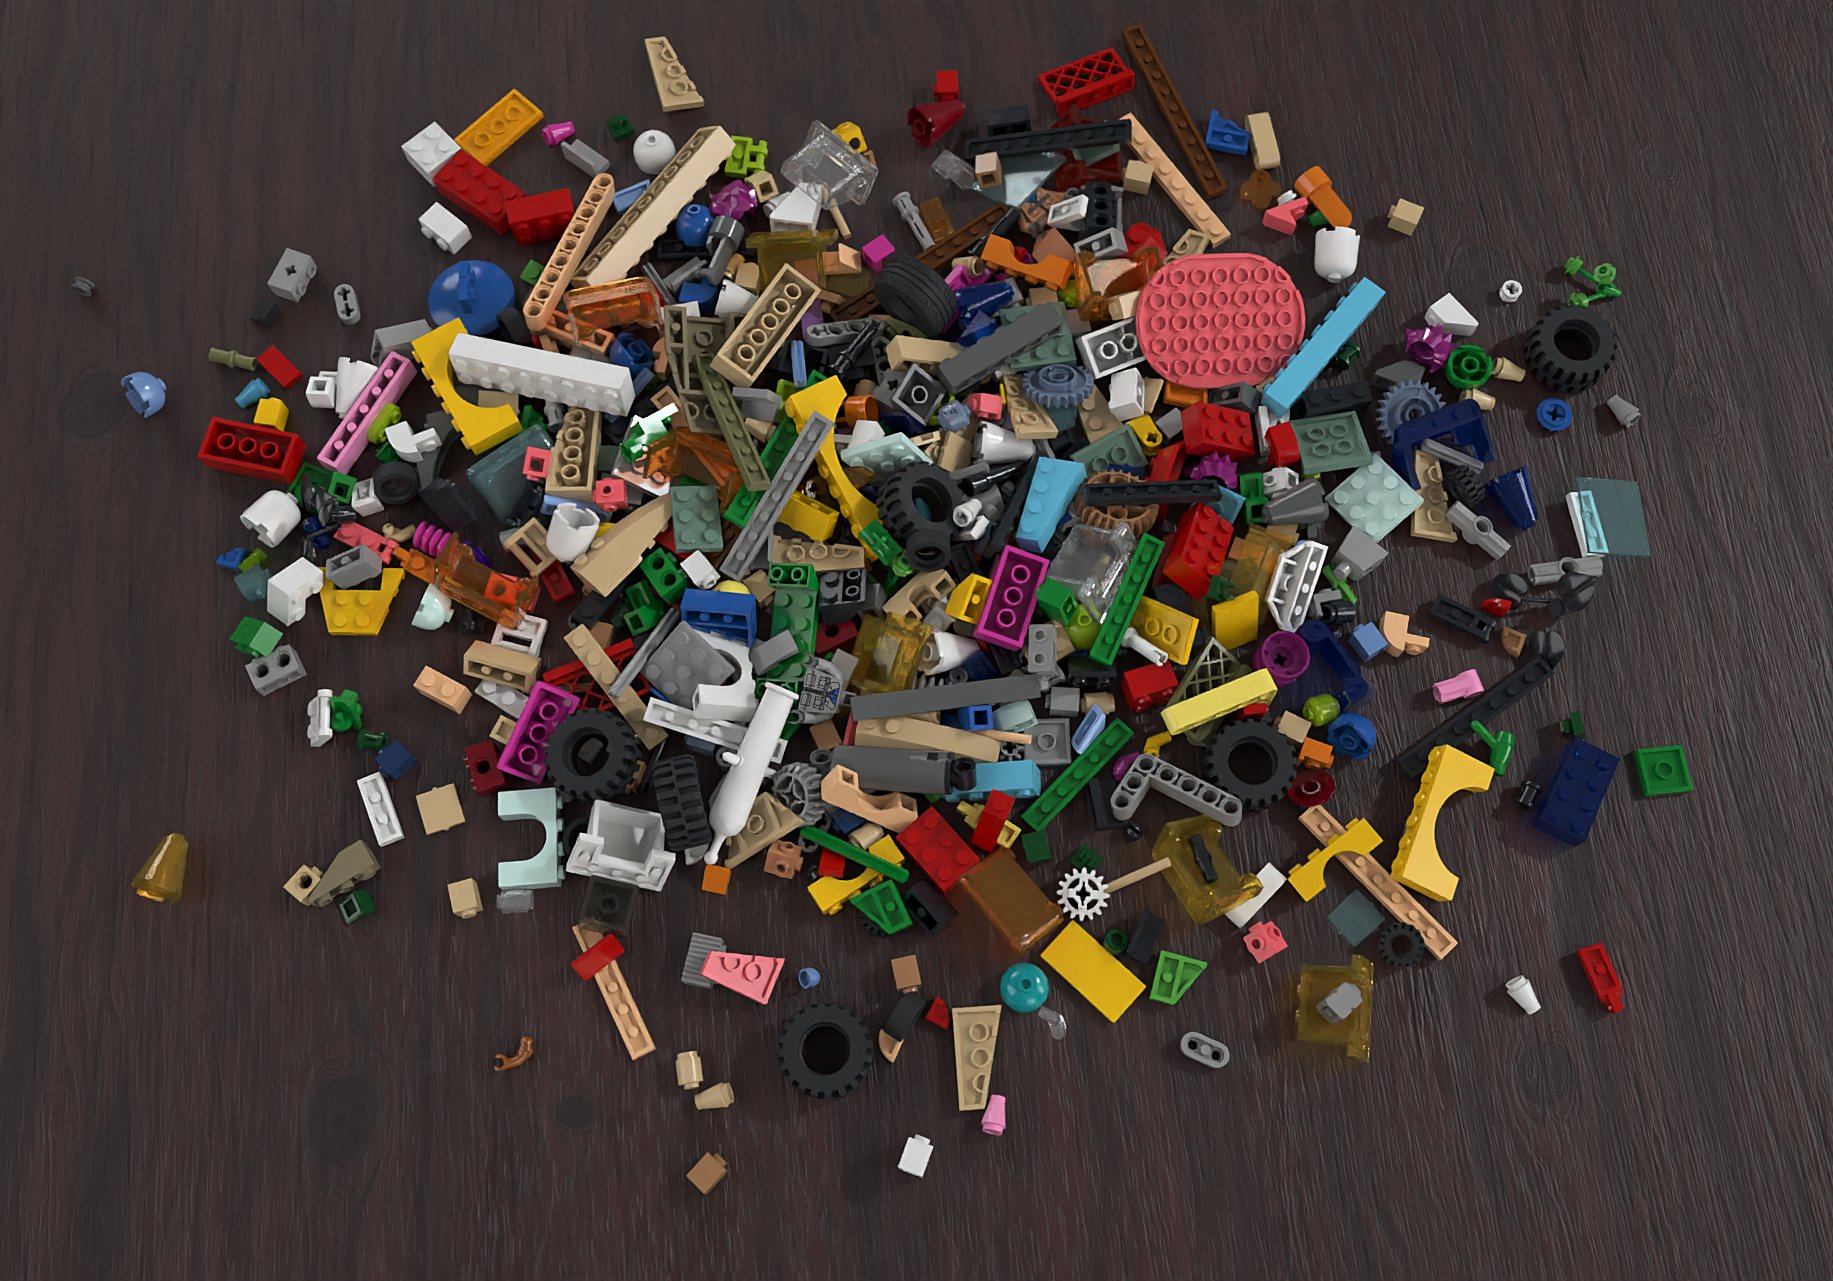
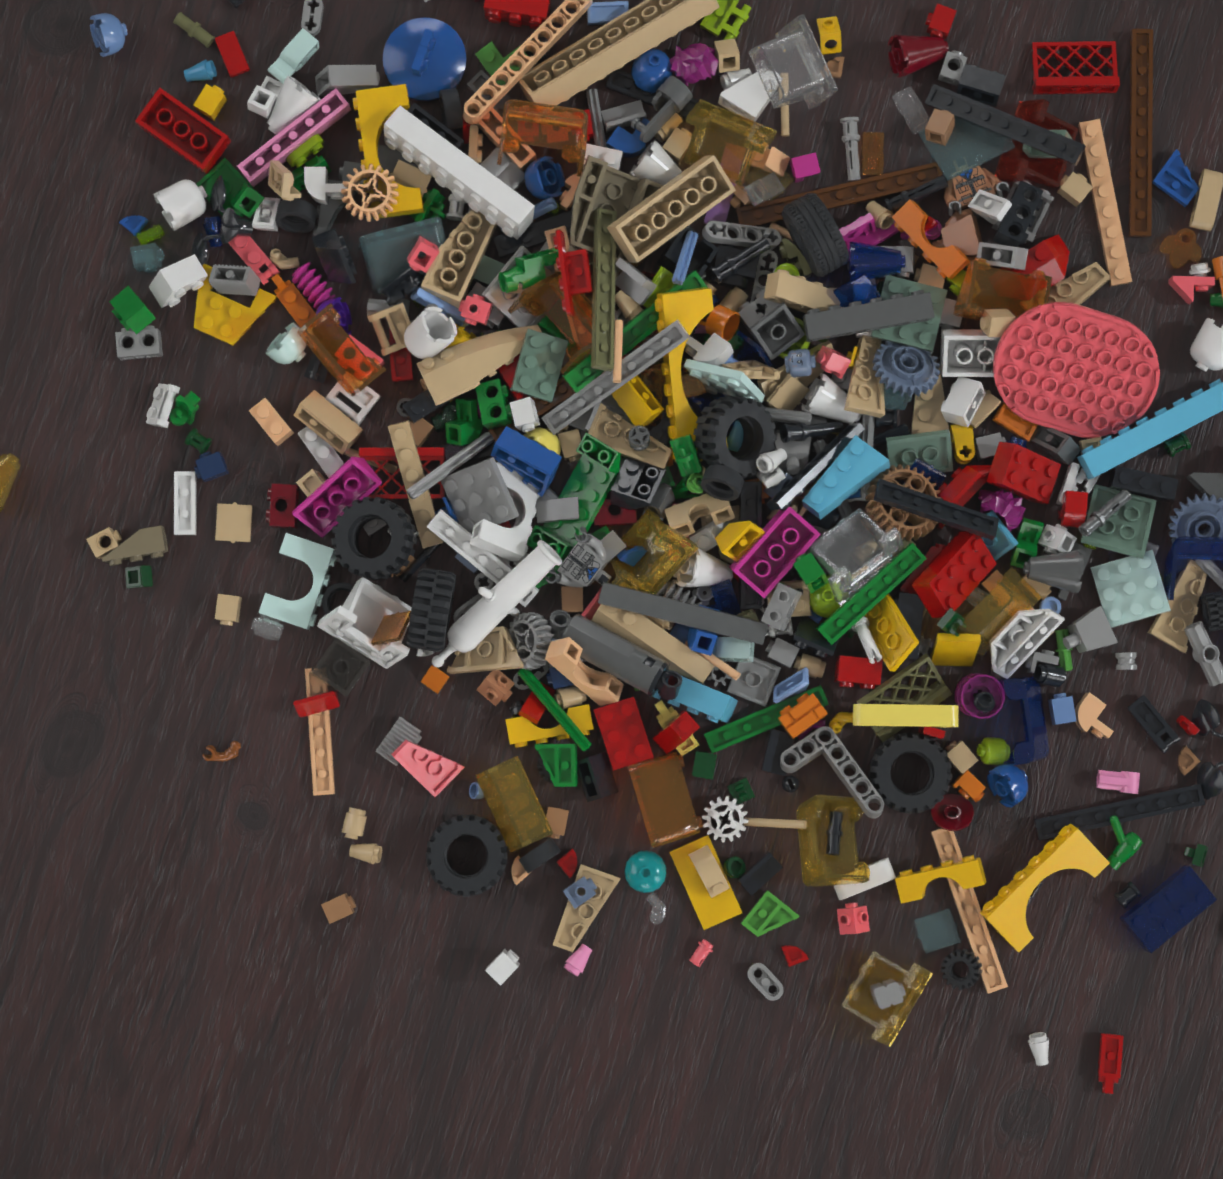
camera: 20 degrees right, 15 degrees up
(342, 341) = (294, 55): none -> light aqua piece
(365, 451) = (282, 181): none -> tan bracket
(449, 417) = (361, 189): none -> light nougat gear
(647, 841) = (391, 628): none -> clear orange piece
(695, 413) = (574, 272): none -> red bracket
(775, 484) = (618, 340): none -> light nougat bar
(829, 542) = (639, 433): none -> dark grey wheel
(848, 285) = (763, 189): none -> clear slope
(854, 972) = (514, 804): none -> clear yellow slope
(868, 668) = (632, 555): none -> blue tile
(962, 1045) = (576, 899): none -> sand blue brick
(979, 127) = (950, 76): none -> light grey brick
(1092, 953) = (709, 871): none -> tan brick
(1113, 752) = (802, 715): none -> orange brick
(1122, 1049) = (701, 952): none -> coral pin
(1220, 1009) = (794, 955): none -> red tile
(1289, 659) = (984, 702): none -> black plate
(1311, 442) = (1099, 517): none -> dark grey pin
(1404, 569) = (1126, 661): none -> light grey wheel

